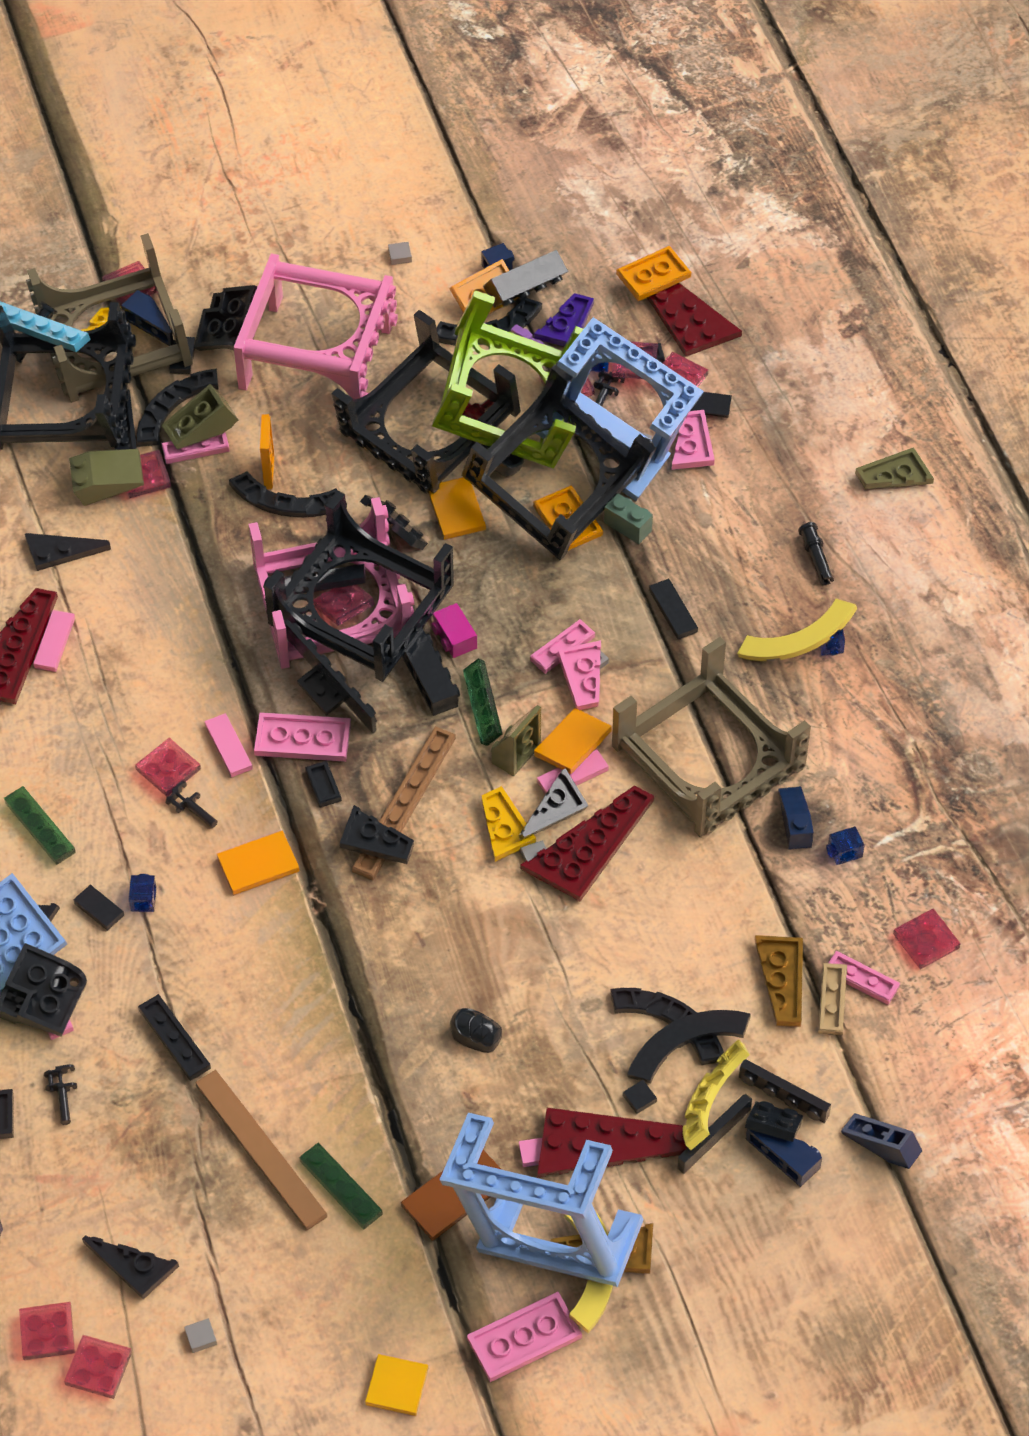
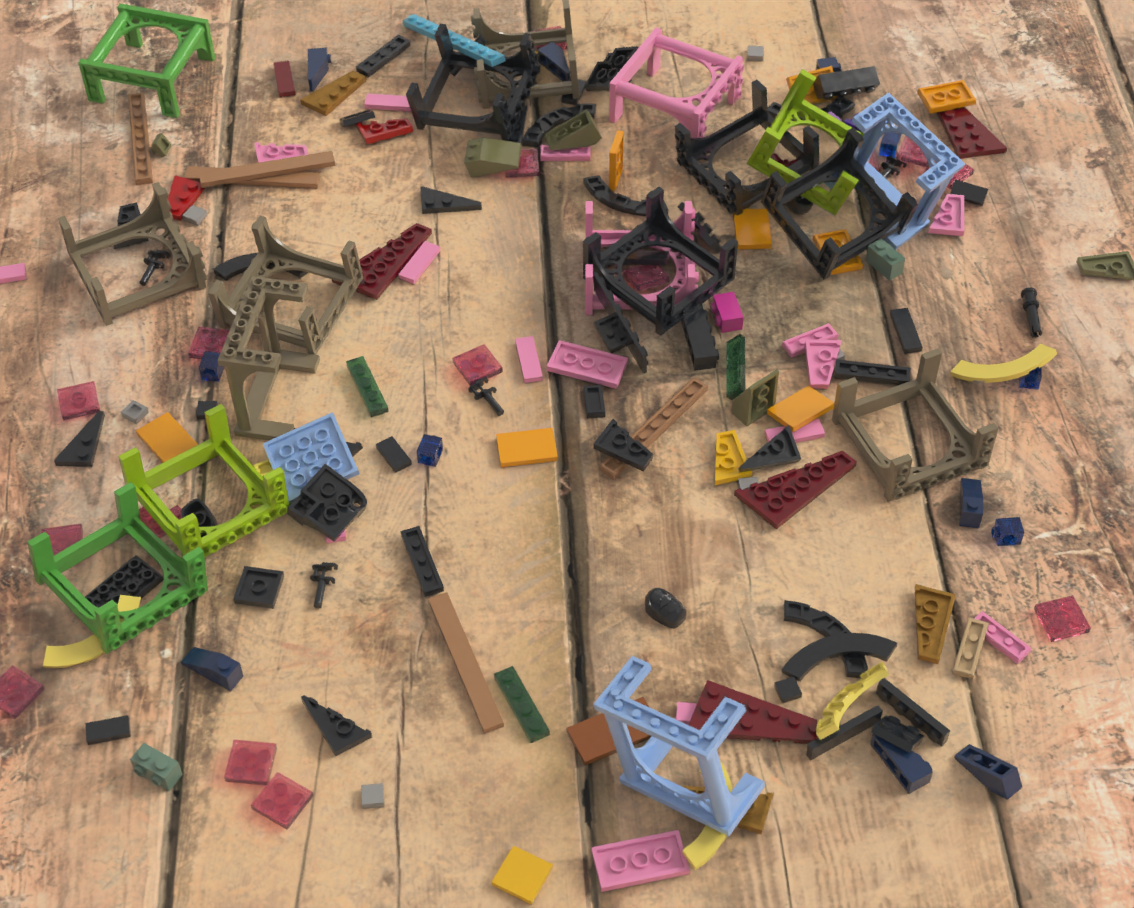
camera: 15 degrees right, 5 degrees down
(646, 674) = (872, 372): none -> black plate

